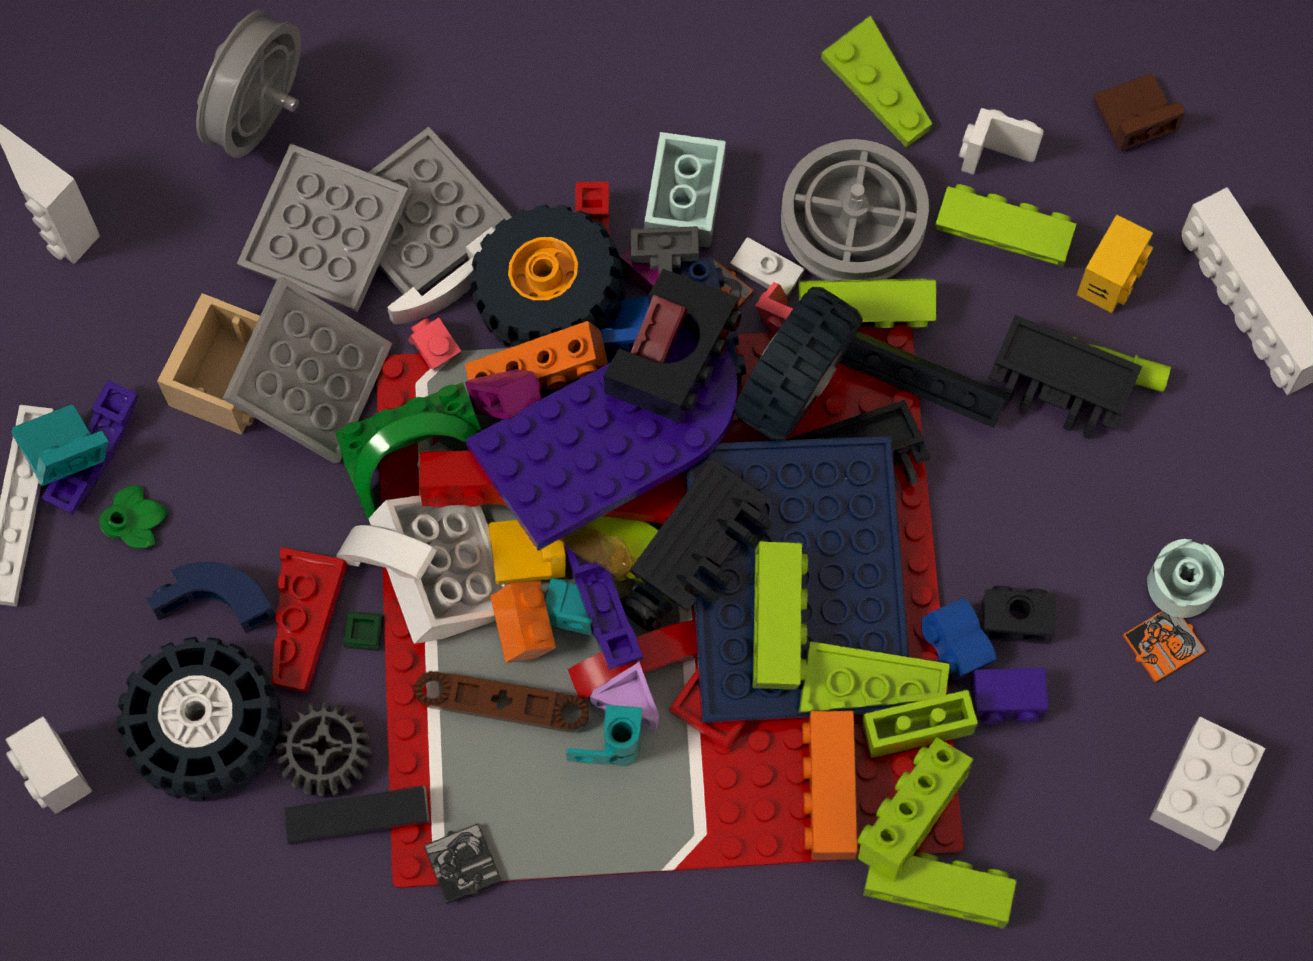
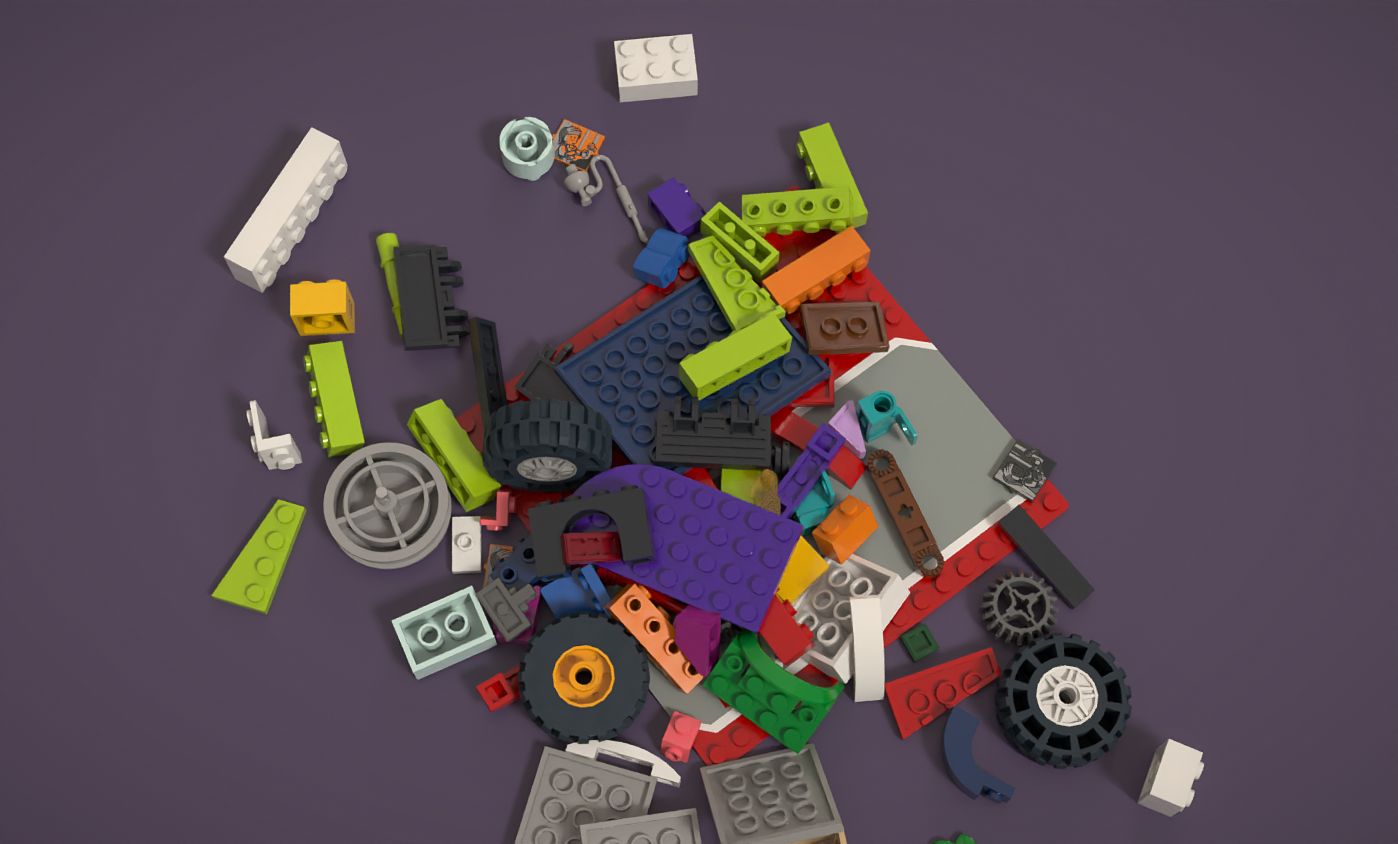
camera: 125 degrees left, 0 degrees up
(746, 772) = (844, 328): none -> reddish brown tile
(1002, 626) = (618, 220): black brick -> none
(1109, 613) = (579, 181): none -> light grey piece
(1138, 112) = (184, 365): reddish brown bracket -> none

